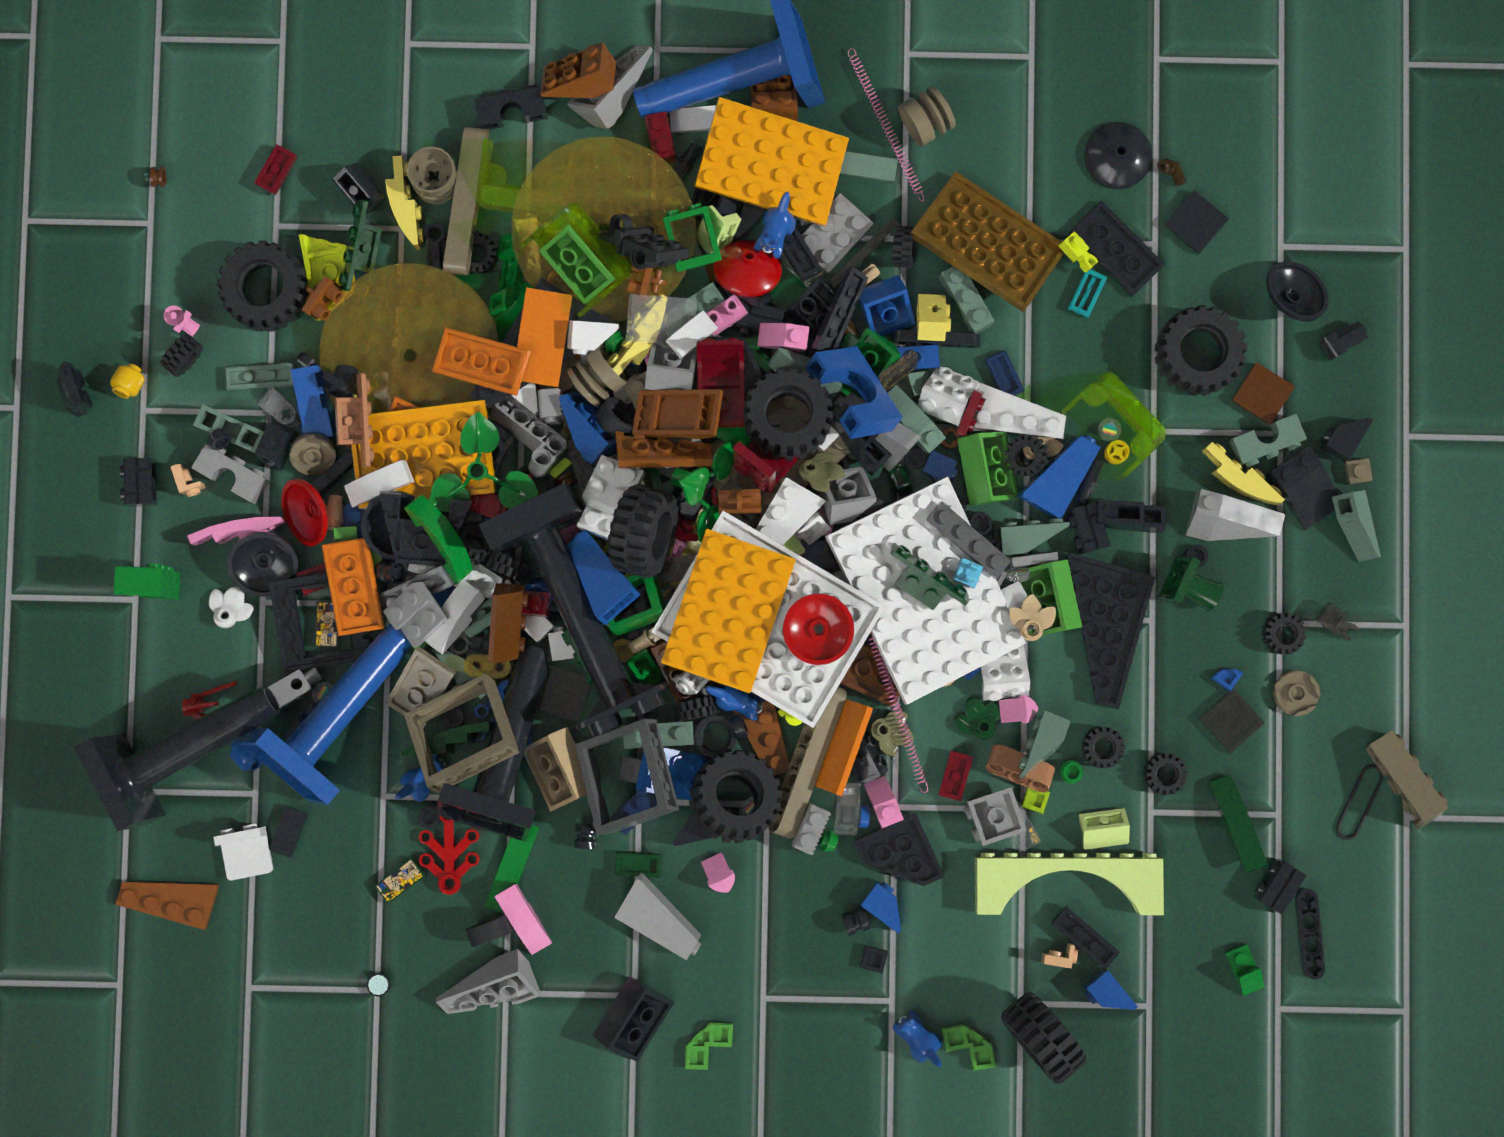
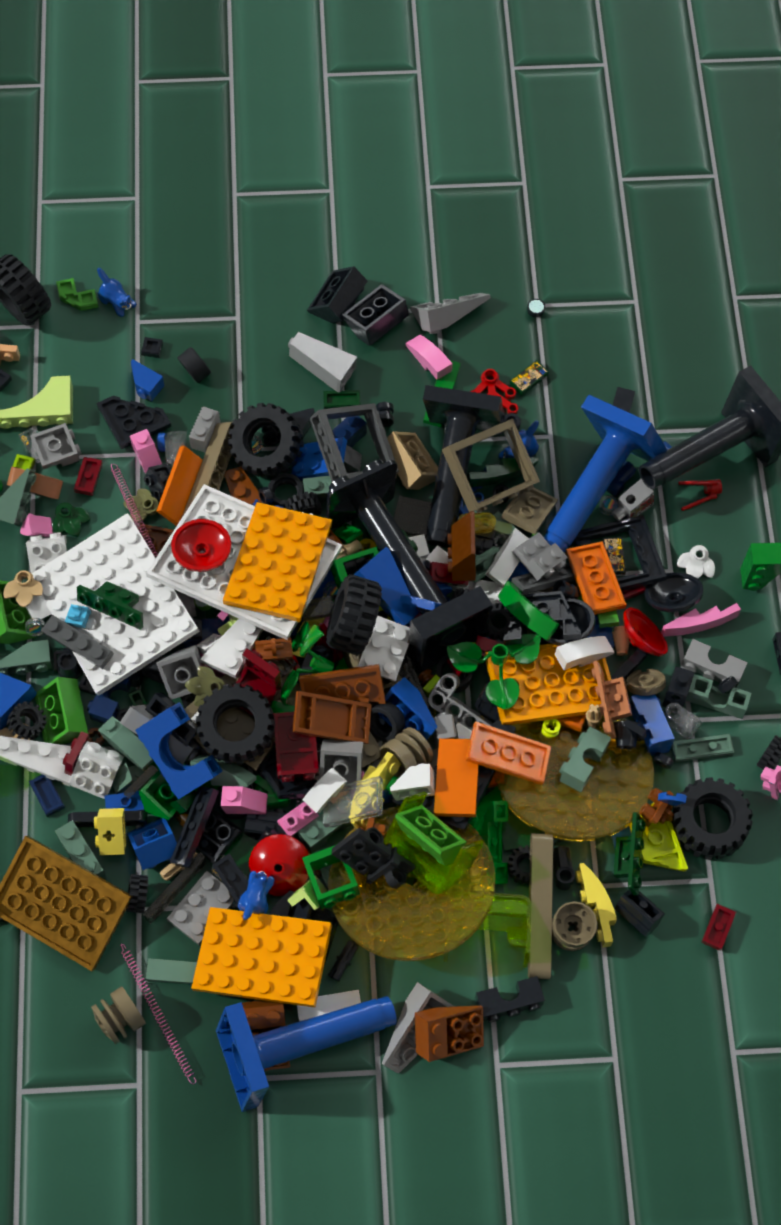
camera: 175 degrees right, 20 degrees down
(177, 902) = (702, 352): dark orange wing -> none
(182, 478) = (752, 655): light nougat bracket -> none
(245, 852) = (653, 388): white bracket -> none
(303, 299) = (672, 800): none -> blue tile
(379, 404) = (593, 716): none -> tan axle
(408, 340) = (591, 745): none -> sand green arch
(424, 394) = (550, 733): none -> neon yellow bush
(489, 930) = (454, 342): black tyre -> none
(562, 542) = (419, 602): none -> blue tile
(585, 982) = (376, 314): none -> black slope
(661, 136) = (367, 978): dark red brick -> none
(713, 1034) = (276, 290): bright green tile -> none
(718, 873) = (278, 395): bright pink tile -> none
(821, 923) = (194, 364): none -> black tyre
(828, 841) = (188, 422): green plate -> none
(860, 918) = (162, 369): black wheel -> none
(1033, 560) = (15, 642): light grey tile -> none

